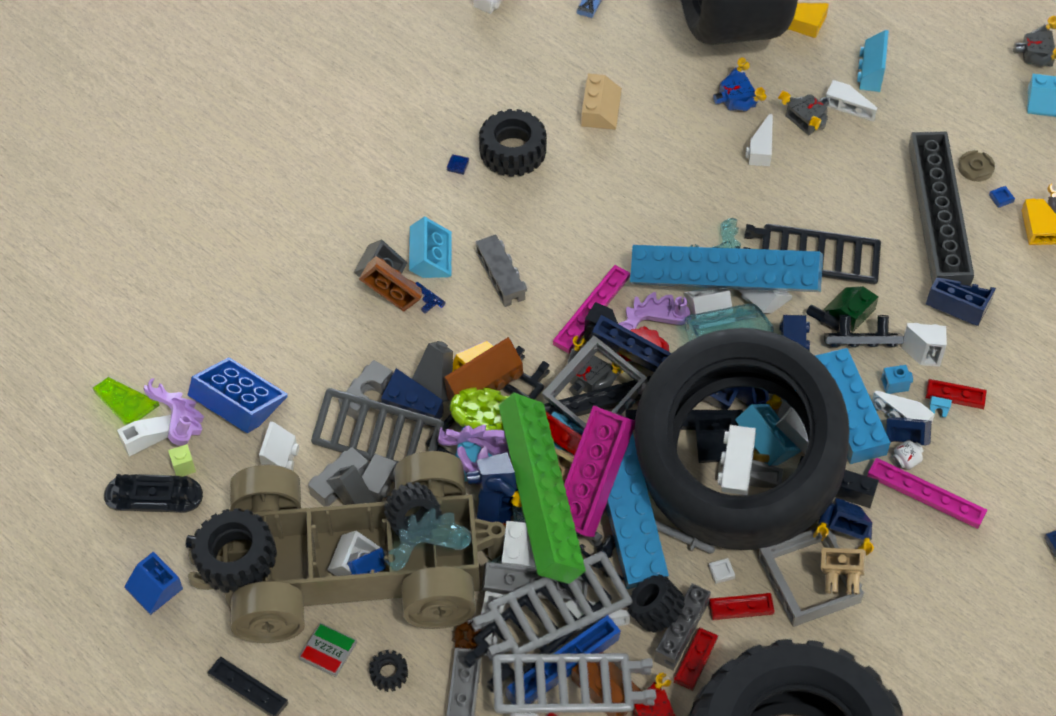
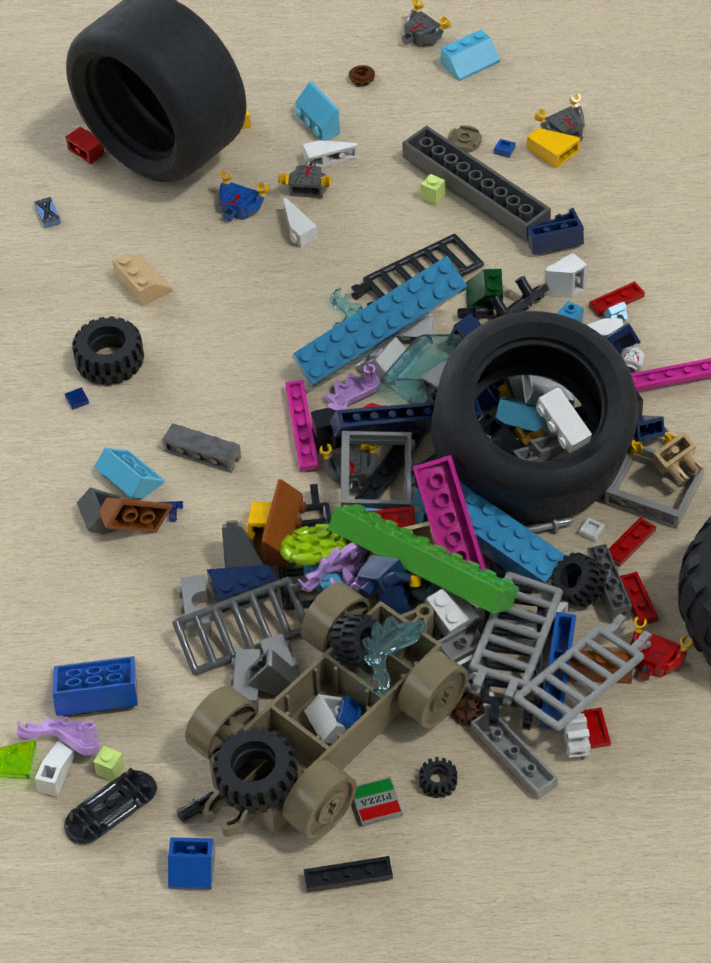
camera: 40 degrees left, 5 degrees down
(278, 447) = (179, 696): white slope -> none
(900, 190) = (433, 189): none -> yellowish green brick
(950, 49) = (360, 70): none -> reddish brown gear

